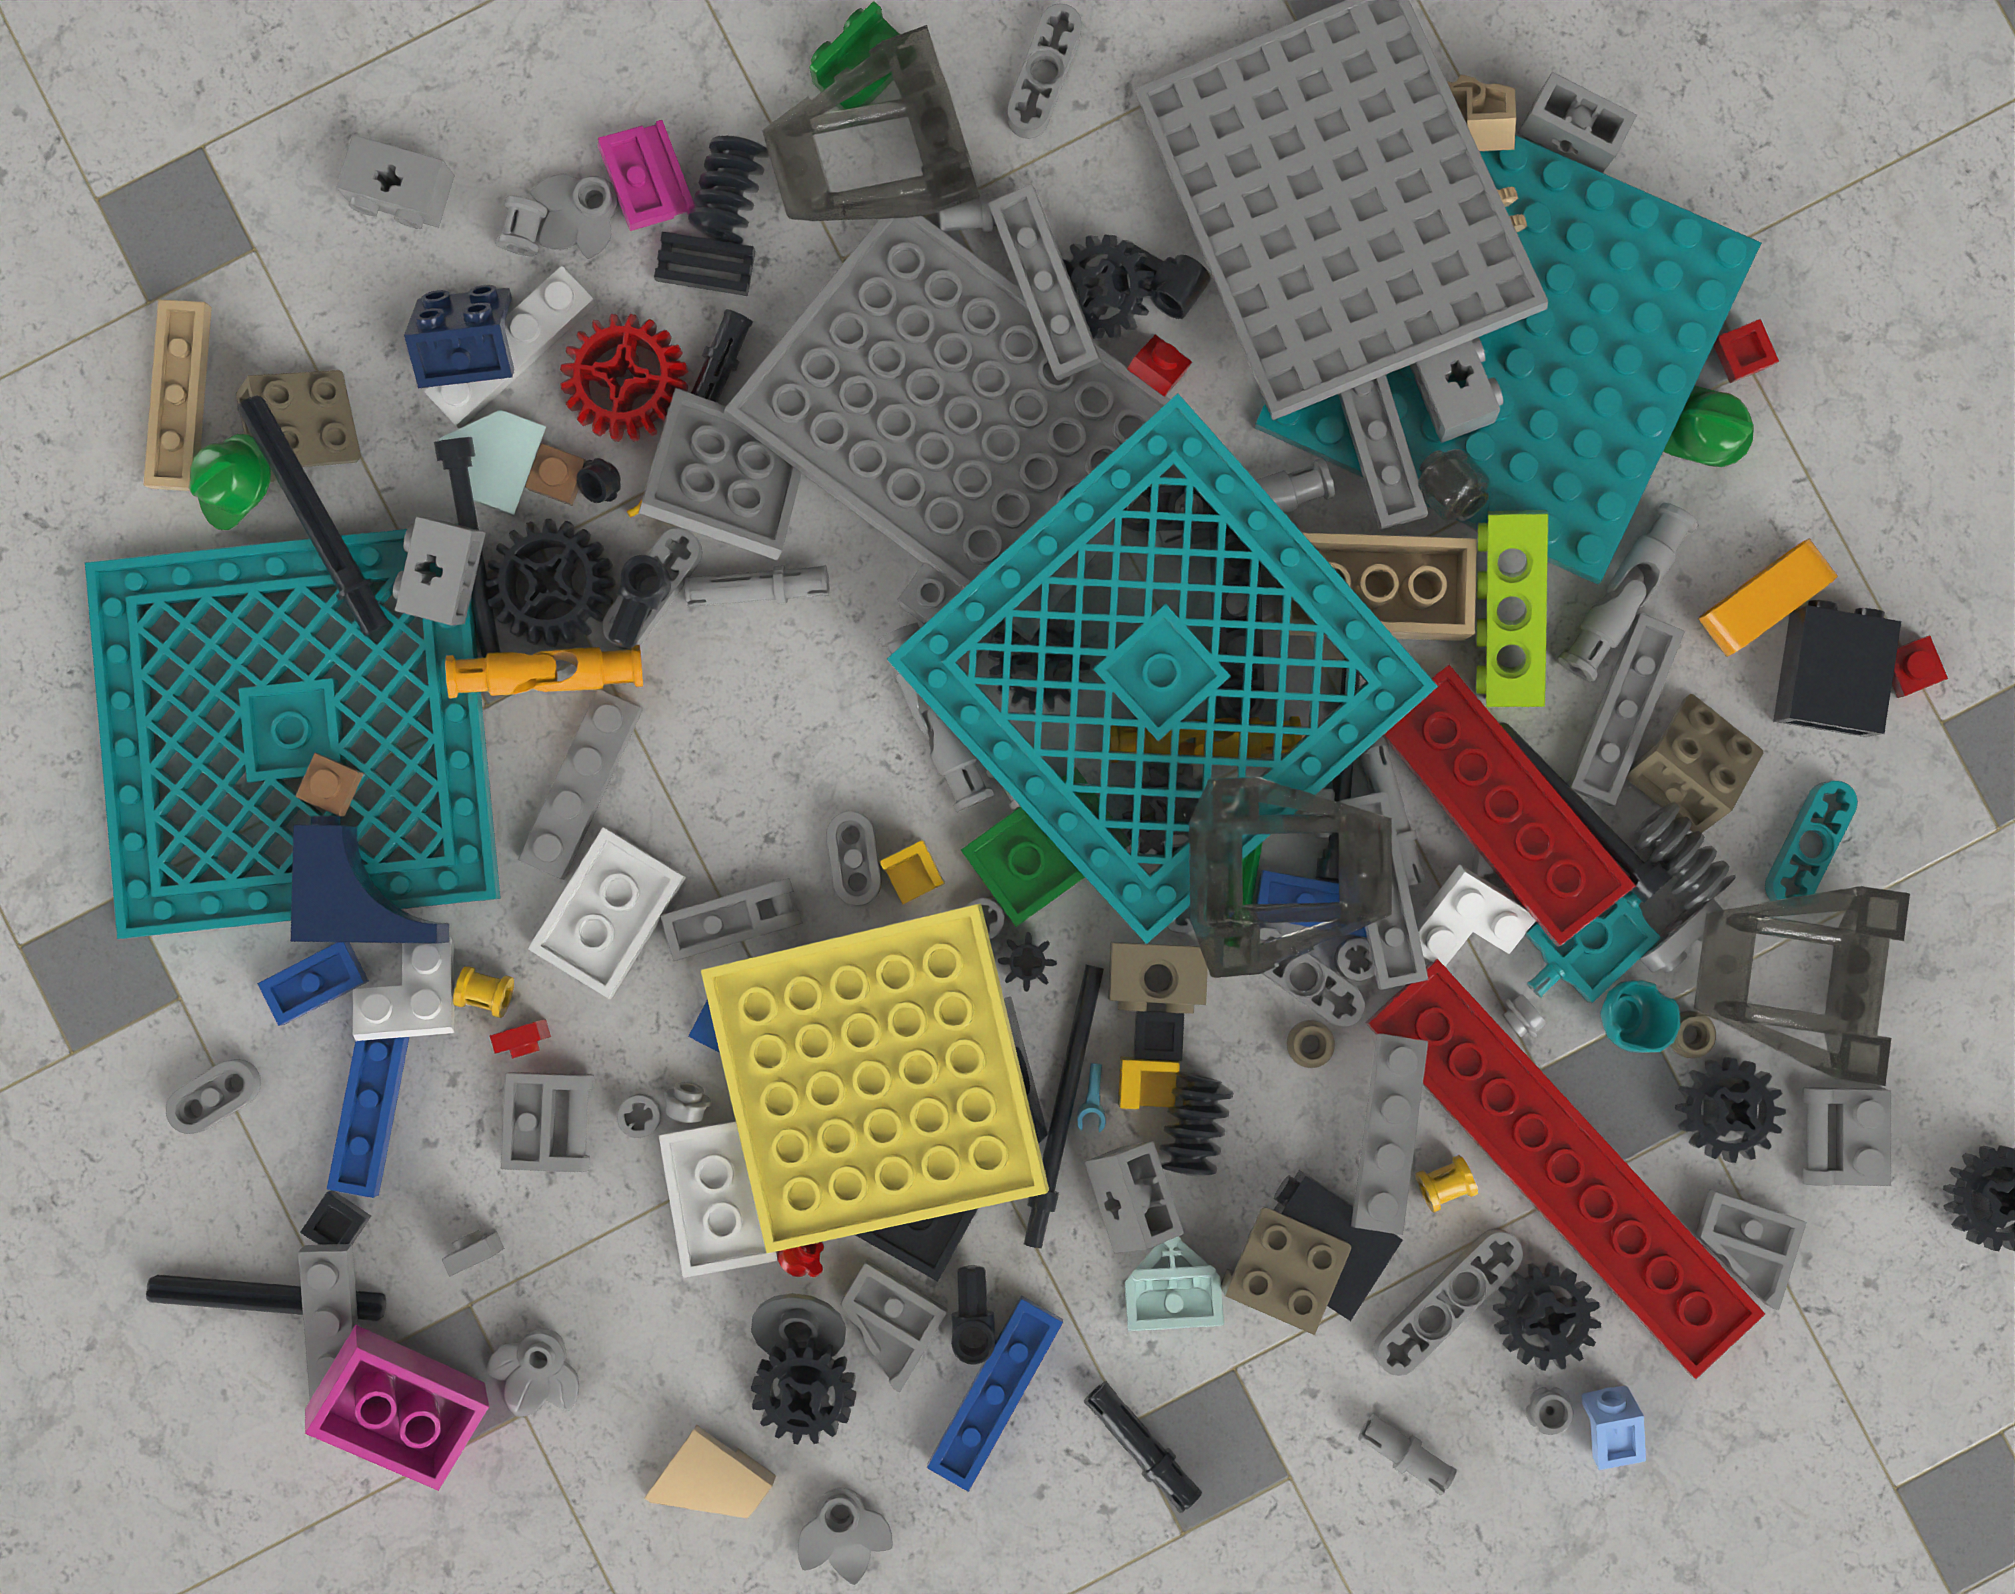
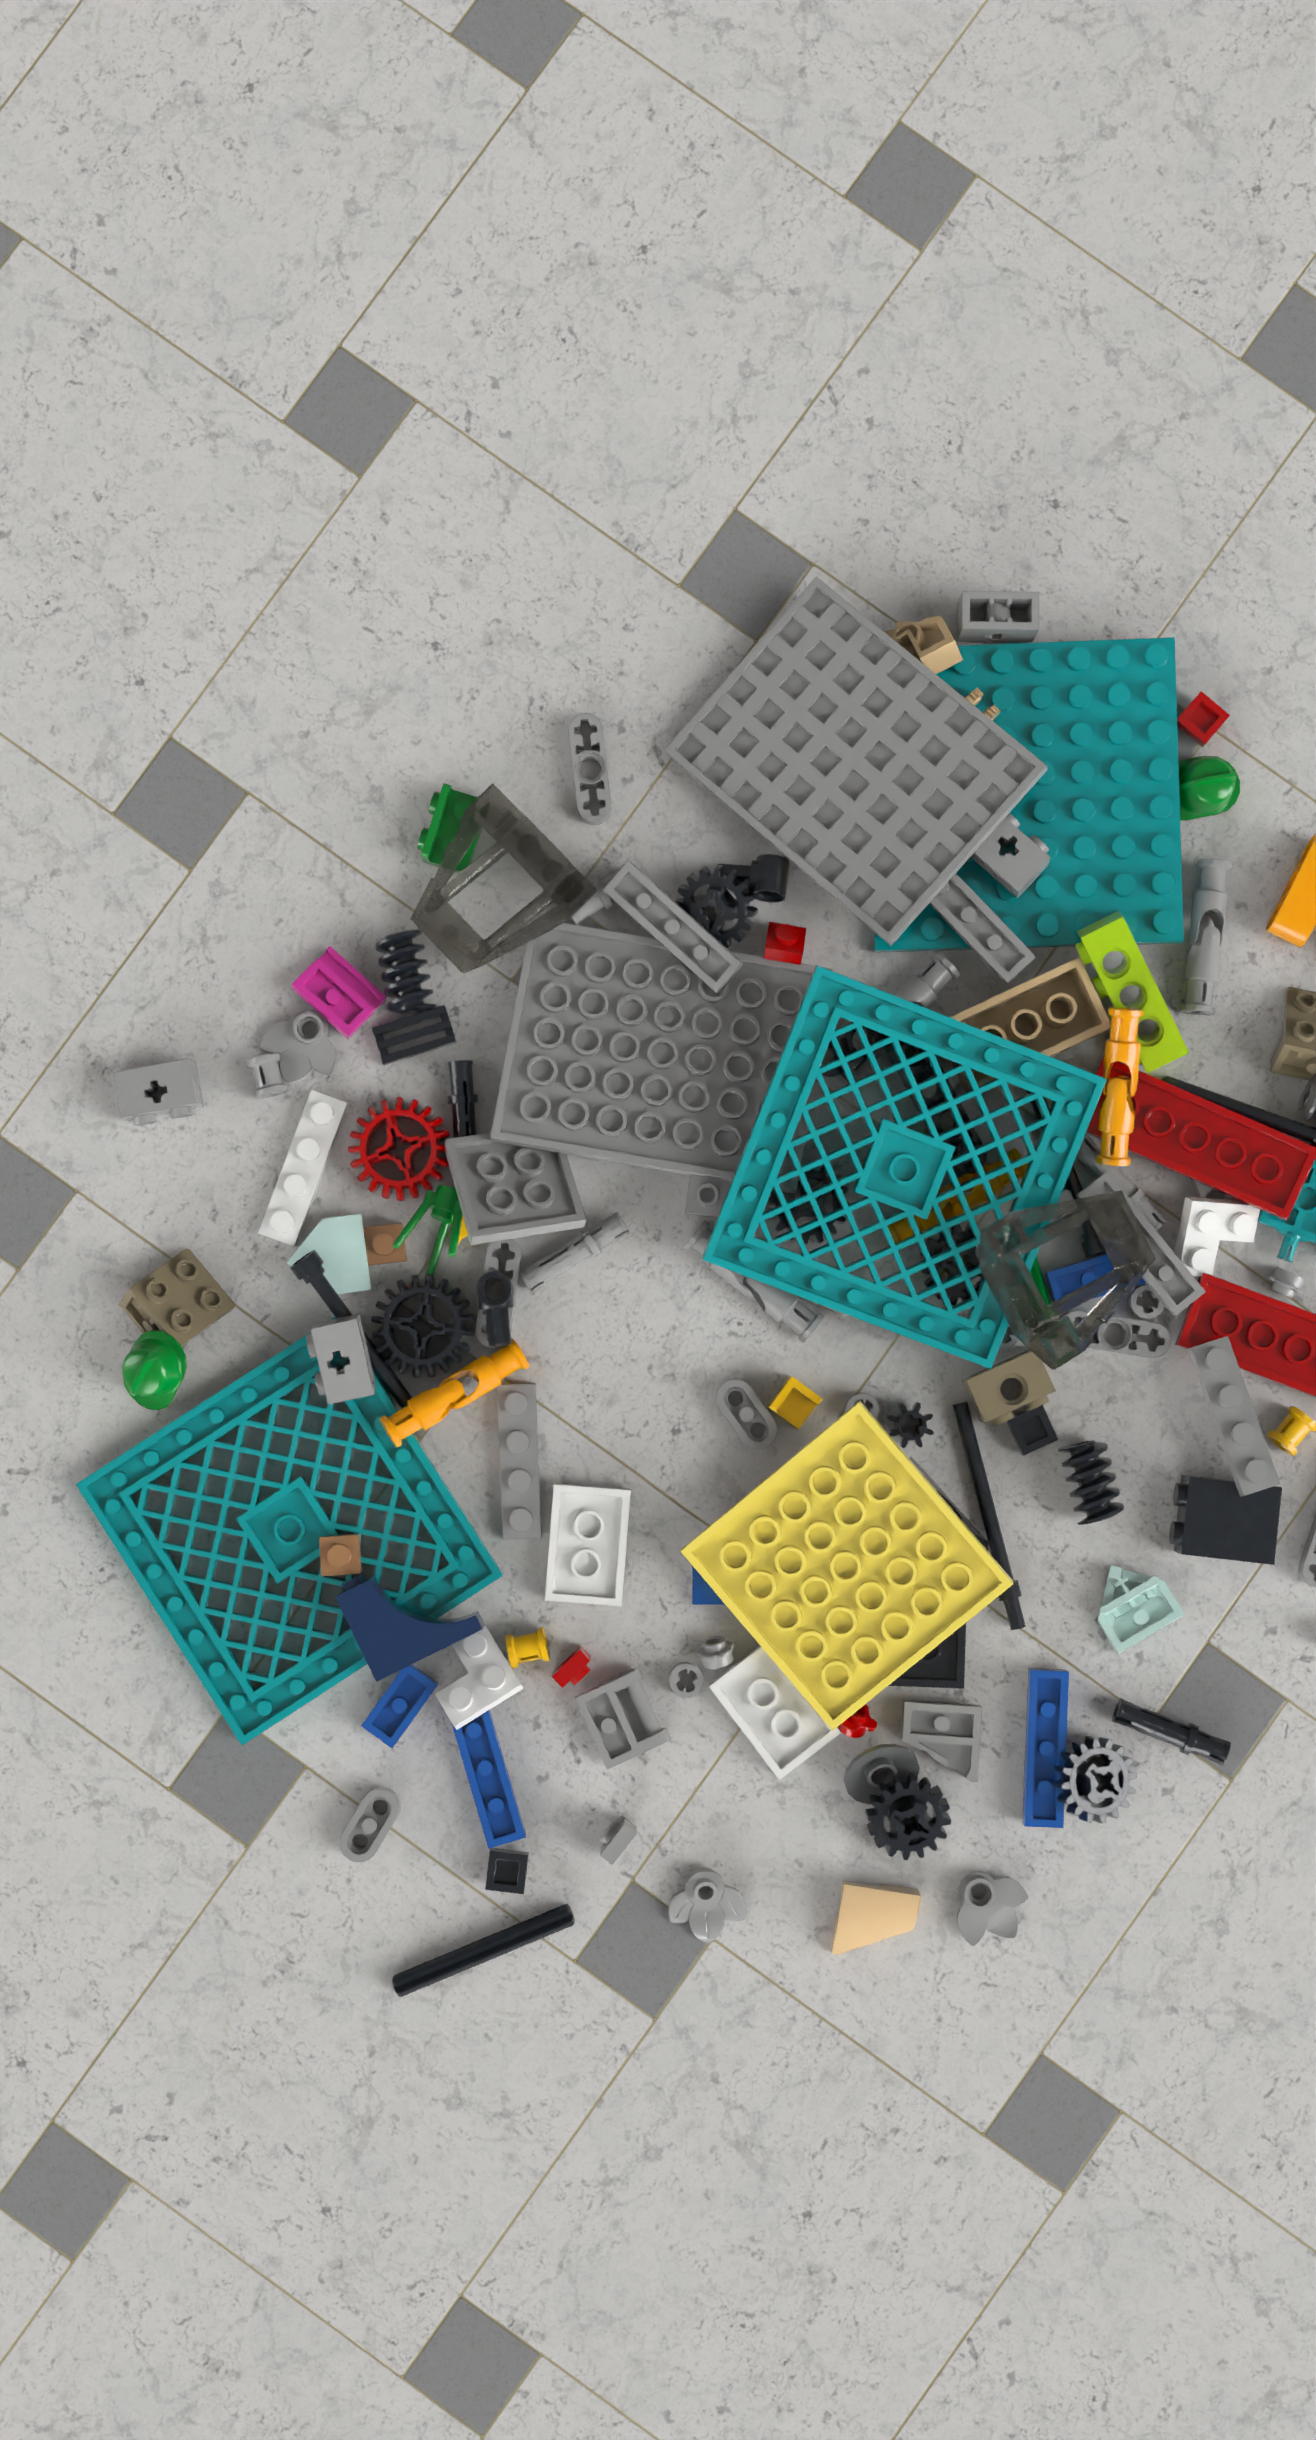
camera: 30 degrees left, 0 degrees up
(177, 393) = (78, 1327): tan plate -> none
(313, 515) = (230, 1365): black axle -> none
(327, 1305) = (548, 1954): light grey plate -> none
(396, 1408) = (623, 1978): dark pink brick -> none
(460, 337) = (267, 1179): dark blue bracket -> none
(599, 481) = (422, 1236): black plate -> none
(635, 467) = (445, 1209): none -> green plant
(729, 920) = (679, 1504): light grey plate -> none
(972, 1313) = (1001, 1698): black axle -> none
(1010, 1460) = (1080, 1785): none -> gear
(1024, 864) = (871, 1355): green plate -> none
(1093, 1098) = (1007, 1500): medium azure hand -> none
(1134, 1197) = (1074, 1555): light grey brick -> none
(1146, 1082) = (1040, 1468): yellow panel -> none
(1287, 1270) = (1210, 1551): dark tan bracket -> none
(1325, 1047) = (1155, 1380): dark tan plate -> none
(1433, 727) = (1117, 1112): none -> light orange piece
(1453, 484) = (1043, 926): clear smoke head -> none
(1625, 709) = (1247, 1023): light grey plate -> none

